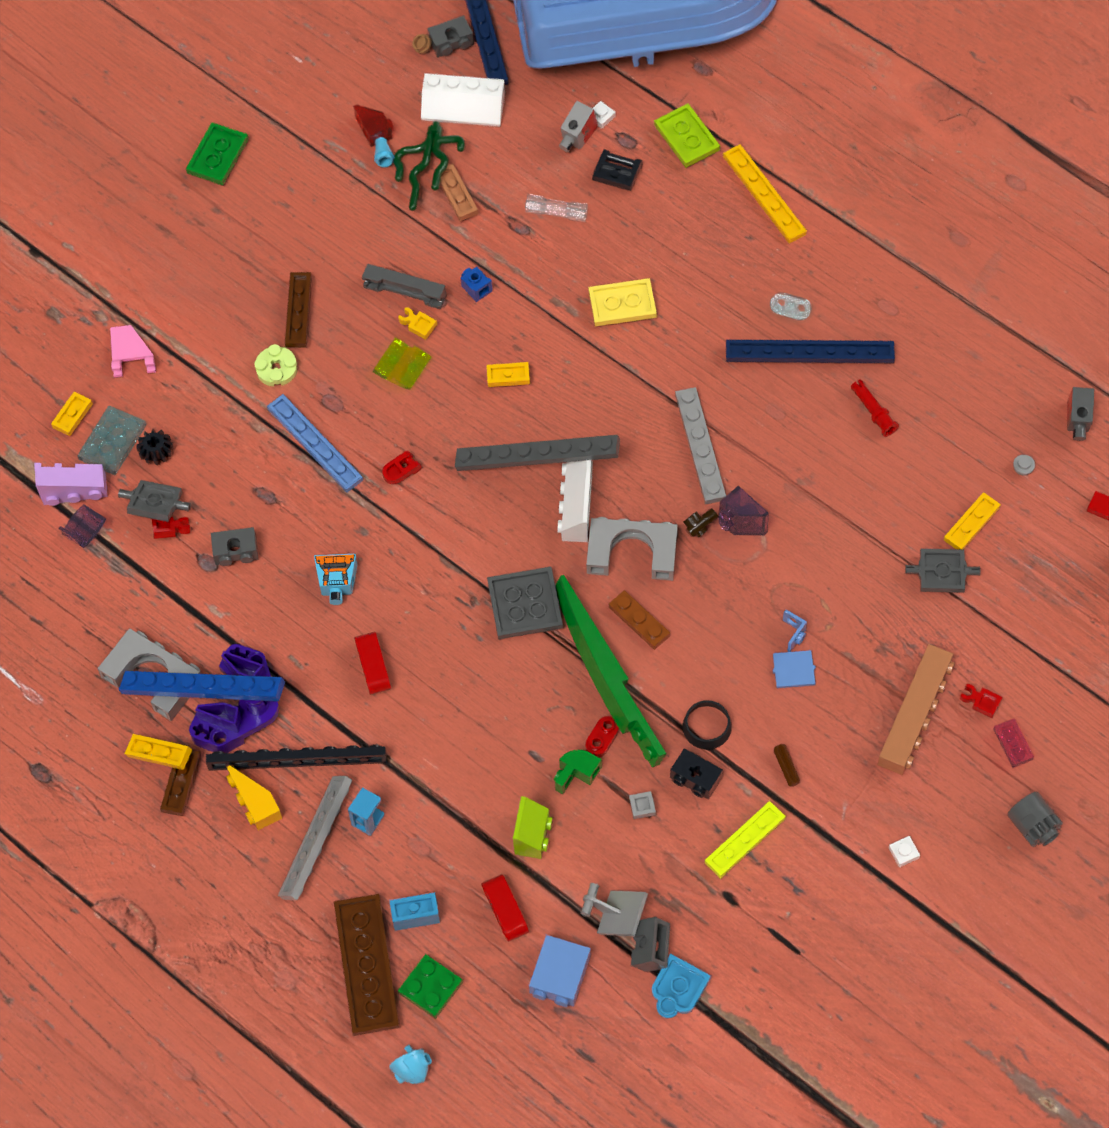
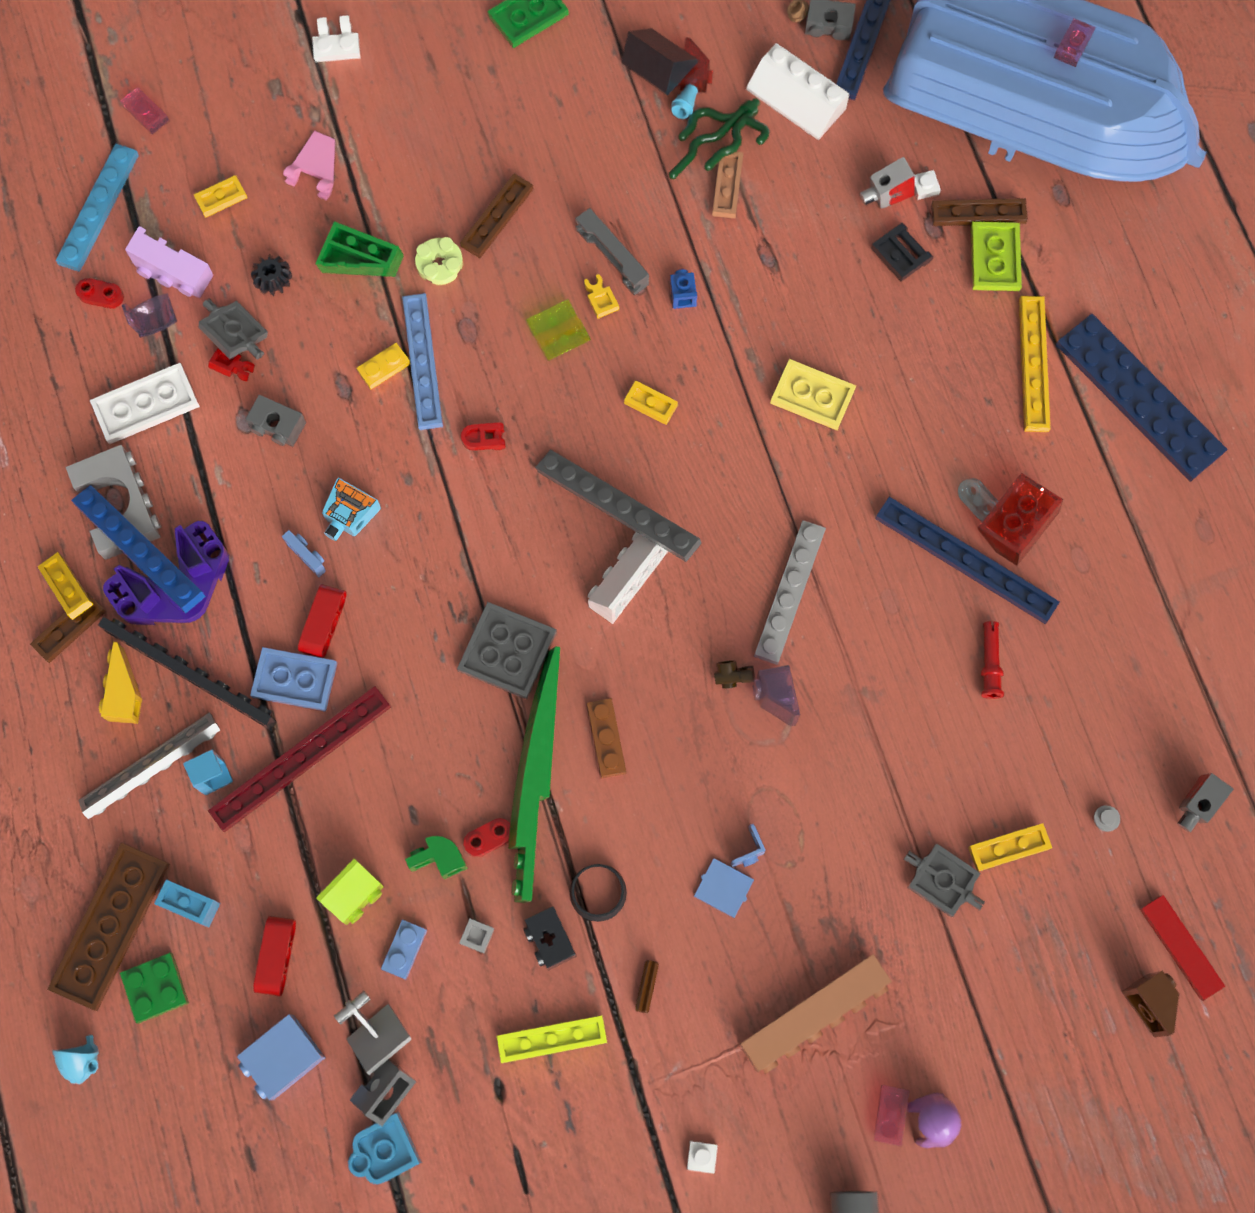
camera: 30 degrees right, 10 degrees up
(25, 536) = (97, 293): none -> red plate
(83, 258) = (335, 47): none -> white plate
(112, 439) = (240, 244): clear light blue plate -> none
(122, 592) = (144, 403): none -> white plate
(213, 393) = (358, 254): none -> green wedge
(287, 463) = (383, 366): none -> yellow plate
(331, 626) = (298, 546): none -> medium blue plate
(342, 133) = (656, 59): none -> black slope
(380, 715) = (294, 679): none -> medium blue plate
(424, 767) = (299, 759): none -> dark red plate
(571, 210) = (827, 268): clear axle -> none
(595, 847) = (404, 949): none -> medium blue plate
(607, 533) = (632, 629): light grey arch -> none
(645, 115) = (980, 210): none -> reddish brown plate
(828, 301) = (1020, 518): none -> clear red slope
(854, 174) = (1141, 397): none -> dark blue plate
(984, 701) = (891, 1051): red plate -> none
(1047, 718) = (937, 1120): none -> medium lavender hair

